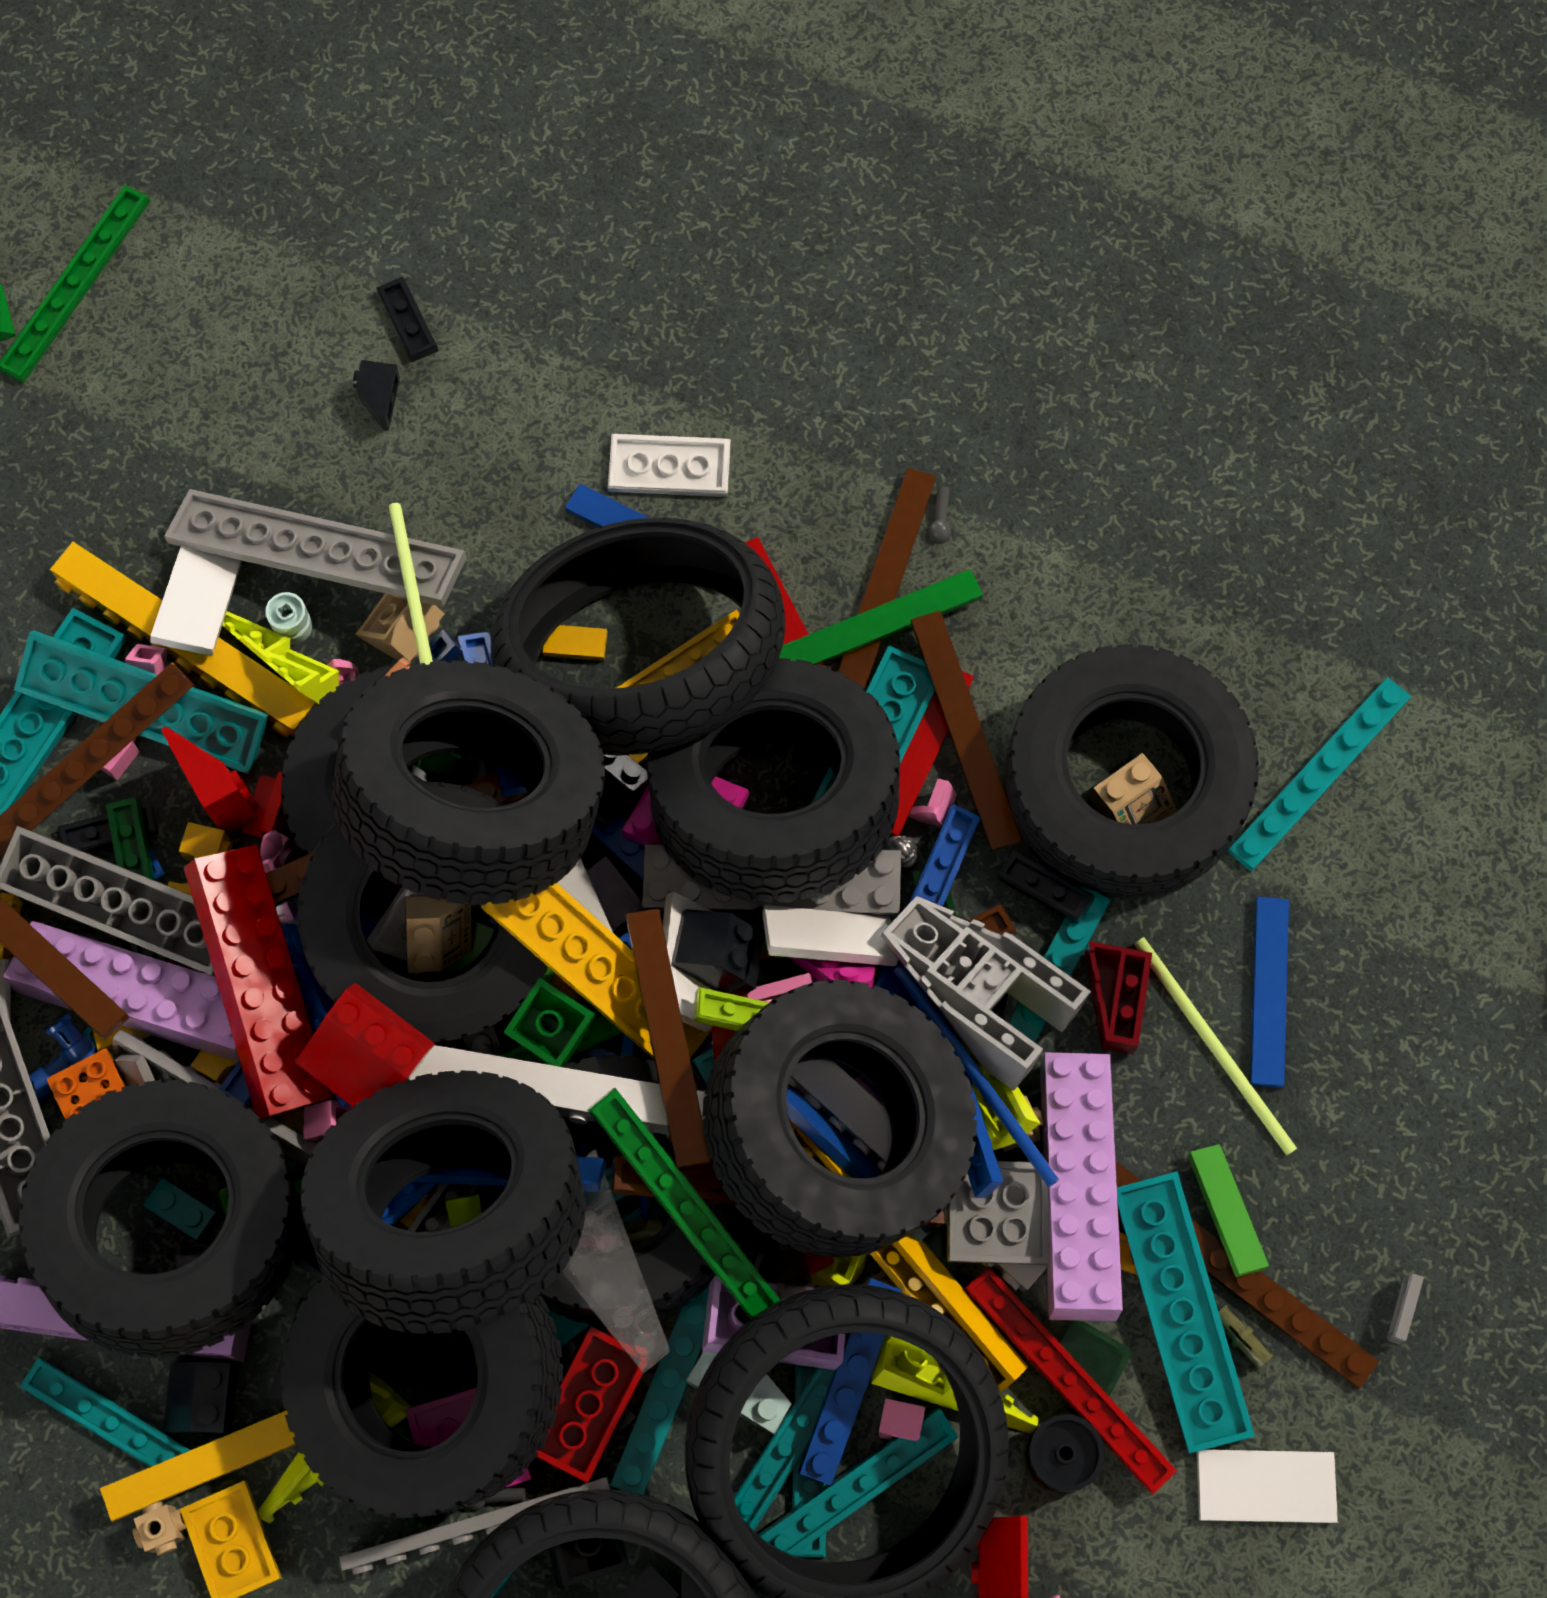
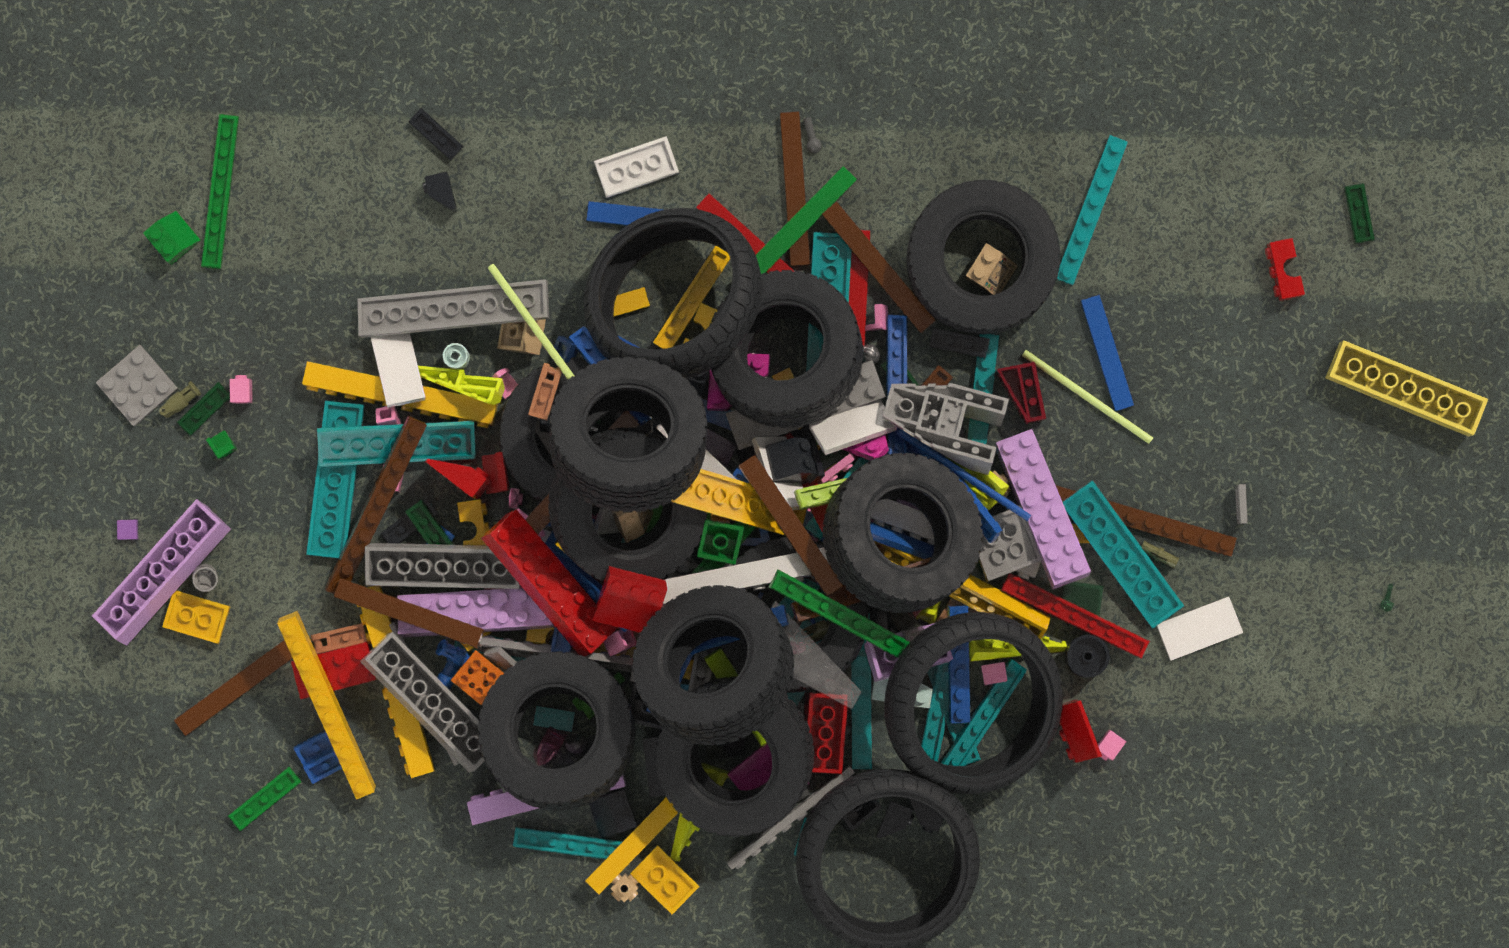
camera: 25 degrees left, 15 degrees up
(154, 1247) = (550, 745): none -> clear pink plate
(1228, 1211) = (1127, 488): bright green tile -> none

